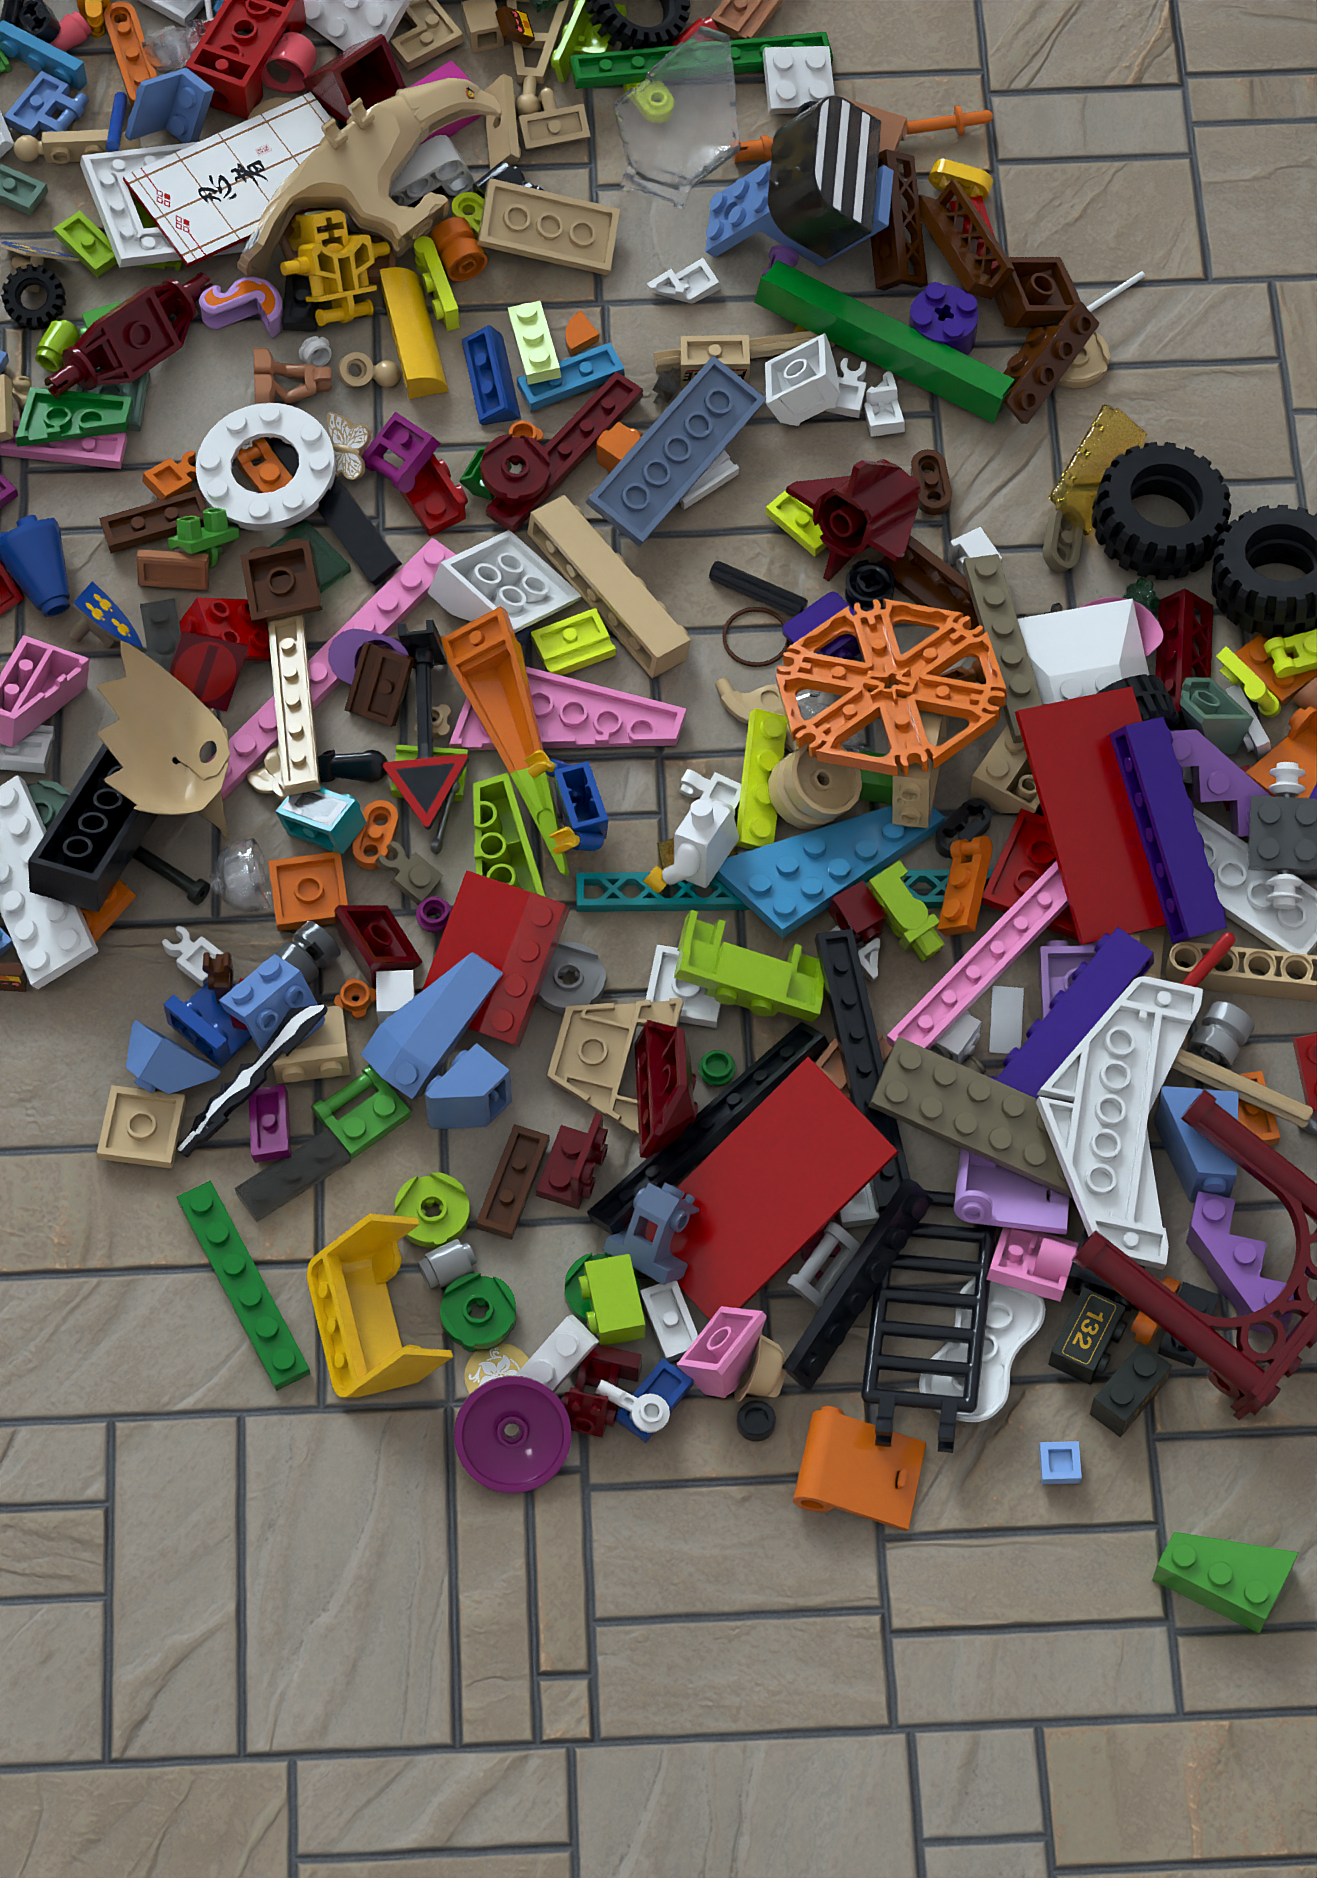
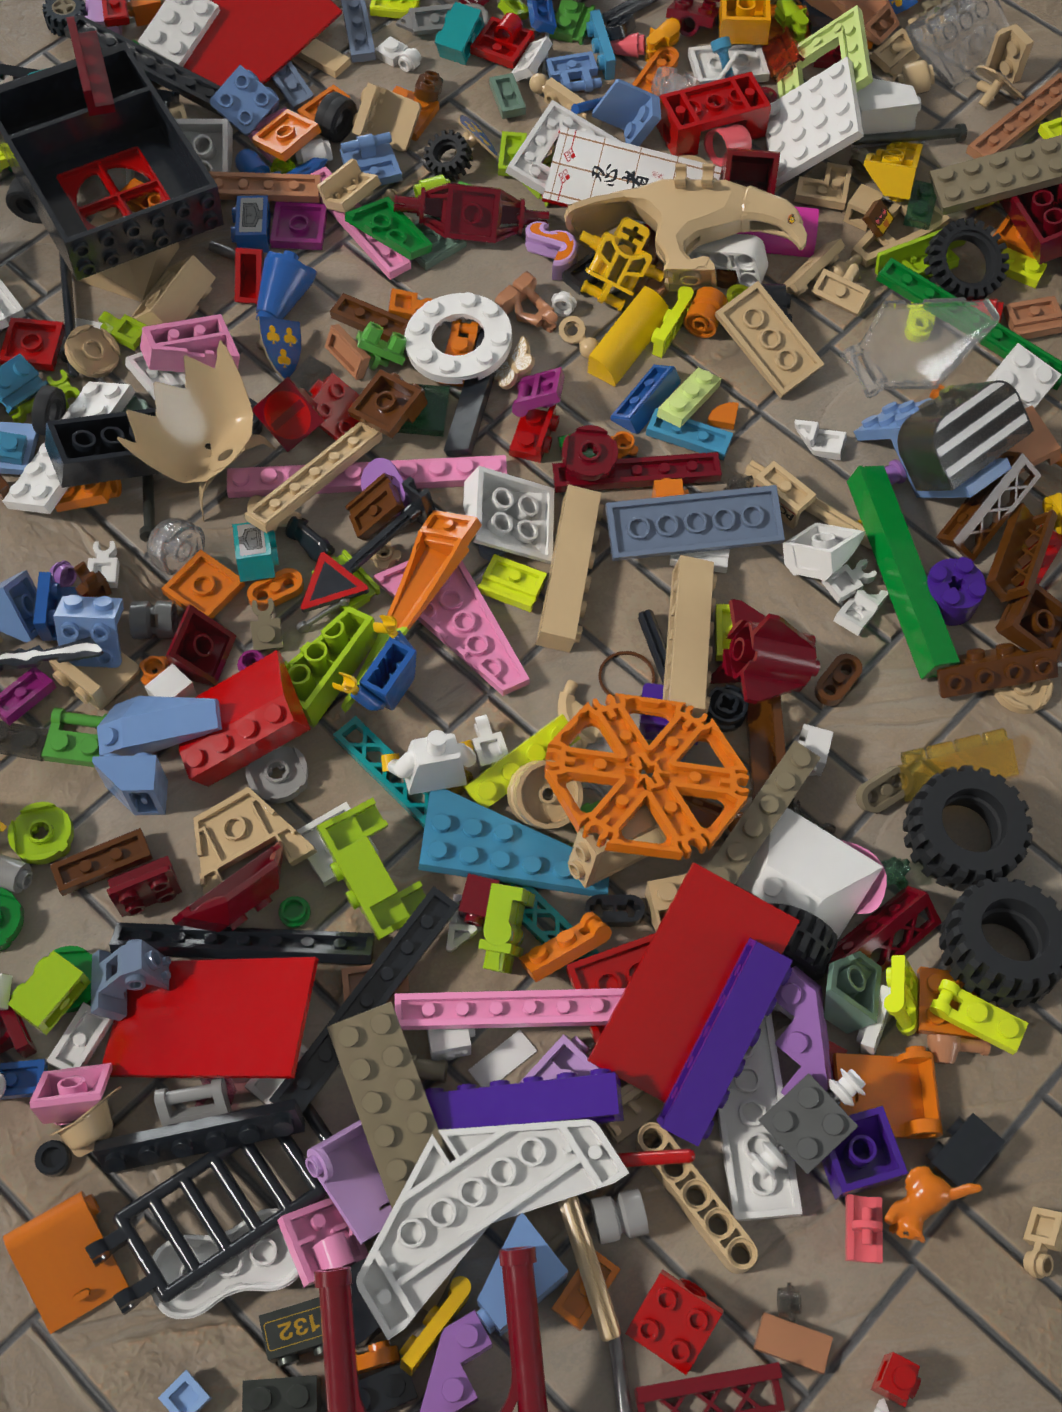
camera: 45 degrees right, 0 degrees up
(163, 993) = (63, 573): none -> medium lavender plate
(774, 550) = (689, 634): none -> tan brick
(1179, 1231) = (417, 1348): none -> yellow plate

